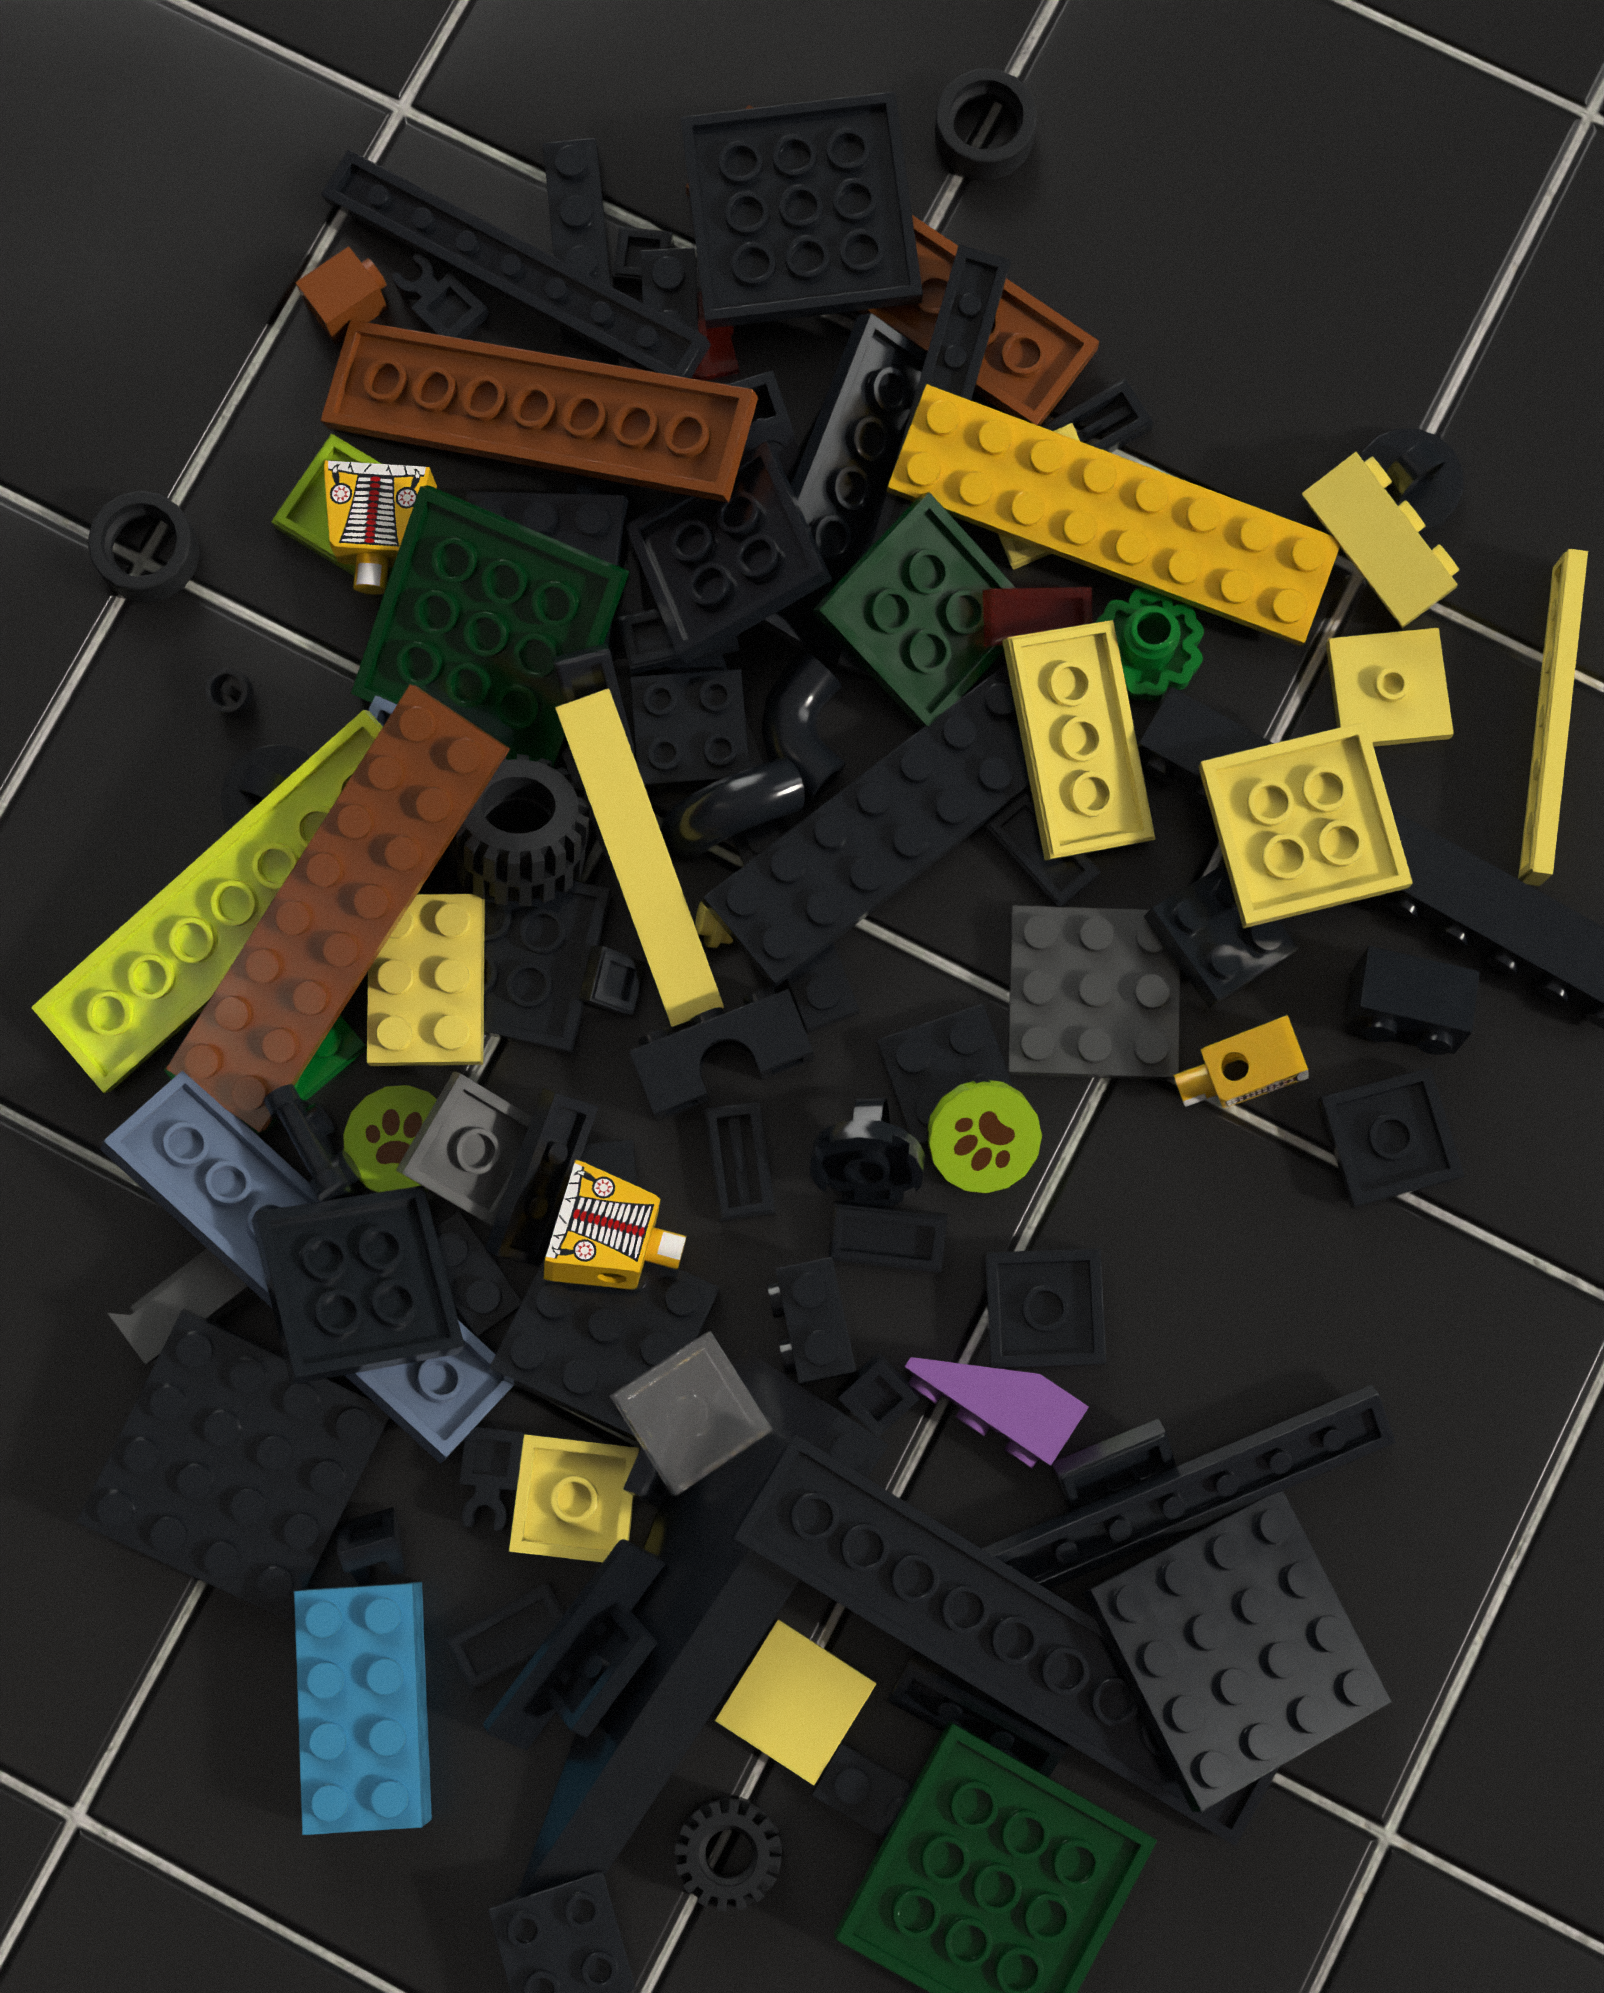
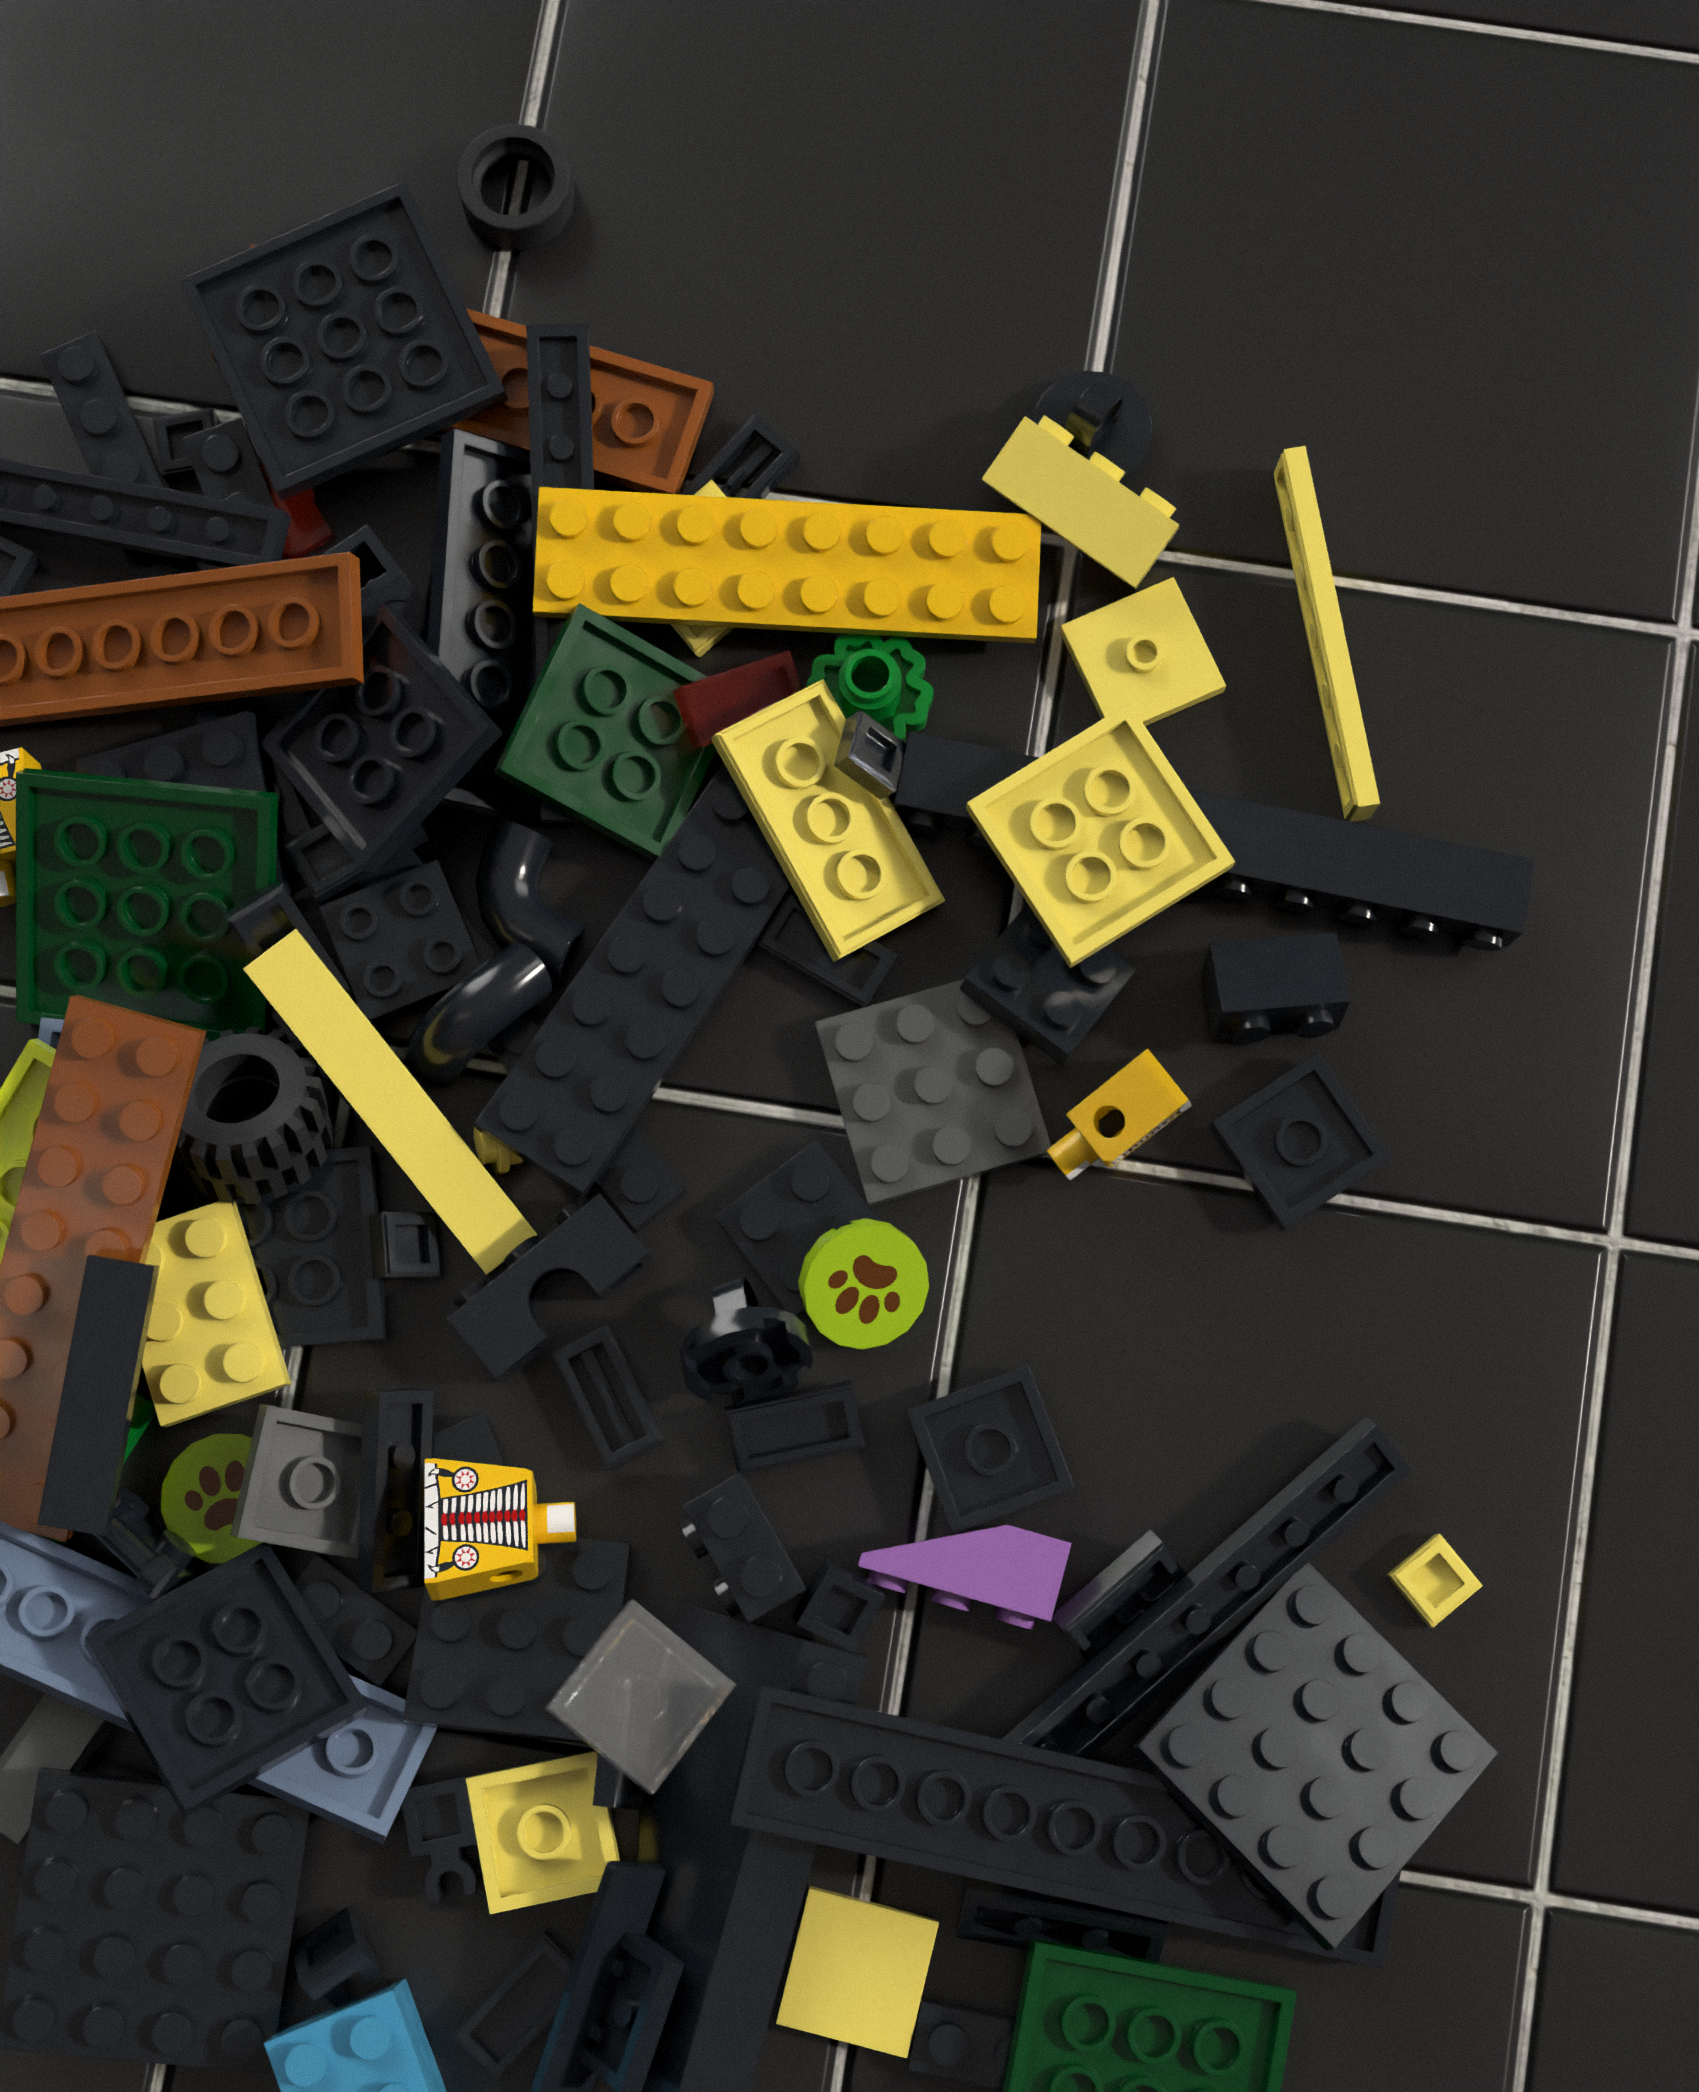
camera: 20 degrees left, 0 degrees up
(328, 1018) = (98, 1395): none -> black tile
(1132, 696) = (870, 755): none -> black tile
(1384, 1541) = (1434, 1580): none -> light yellow tile

